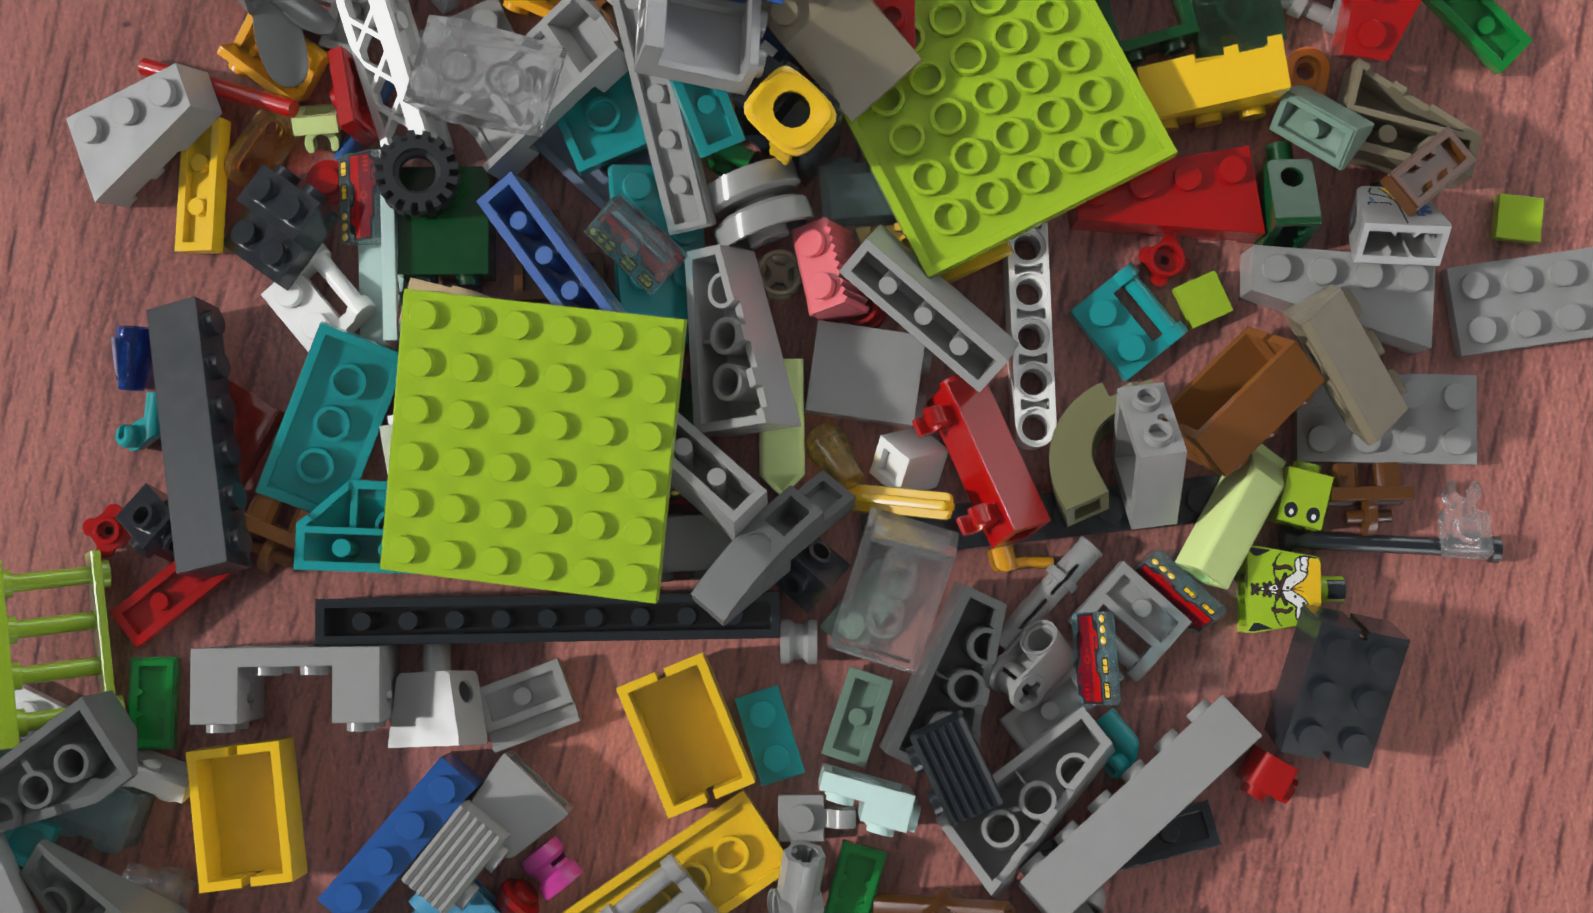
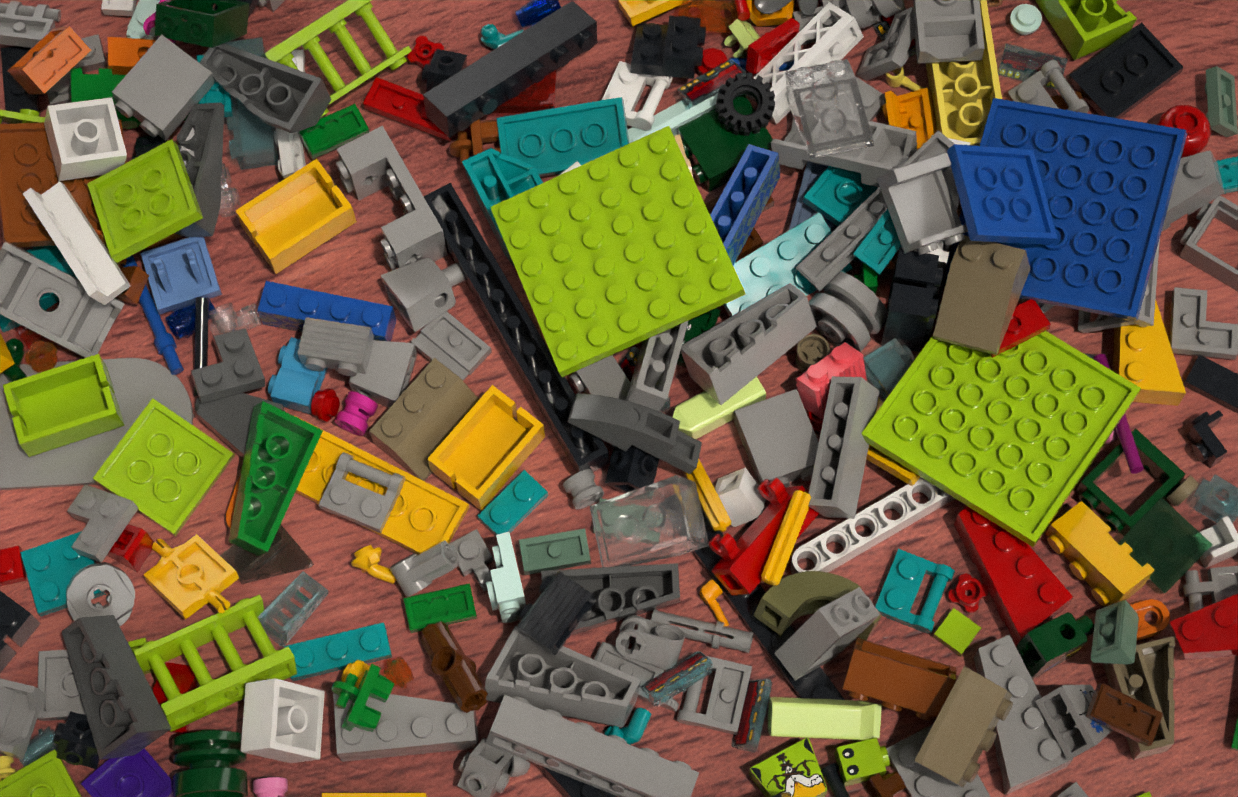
camera: 65 degrees right, 15 degrees down
(606, 786) = (423, 418): none -> dark tan slope
(636, 243) = (778, 249): clear light blue slope -> none
(788, 141) = (895, 297): yellow piece -> none
(833, 454) = (716, 446): clear yellow cone -> none
(1007, 439) = (786, 538): none -> yellow axle

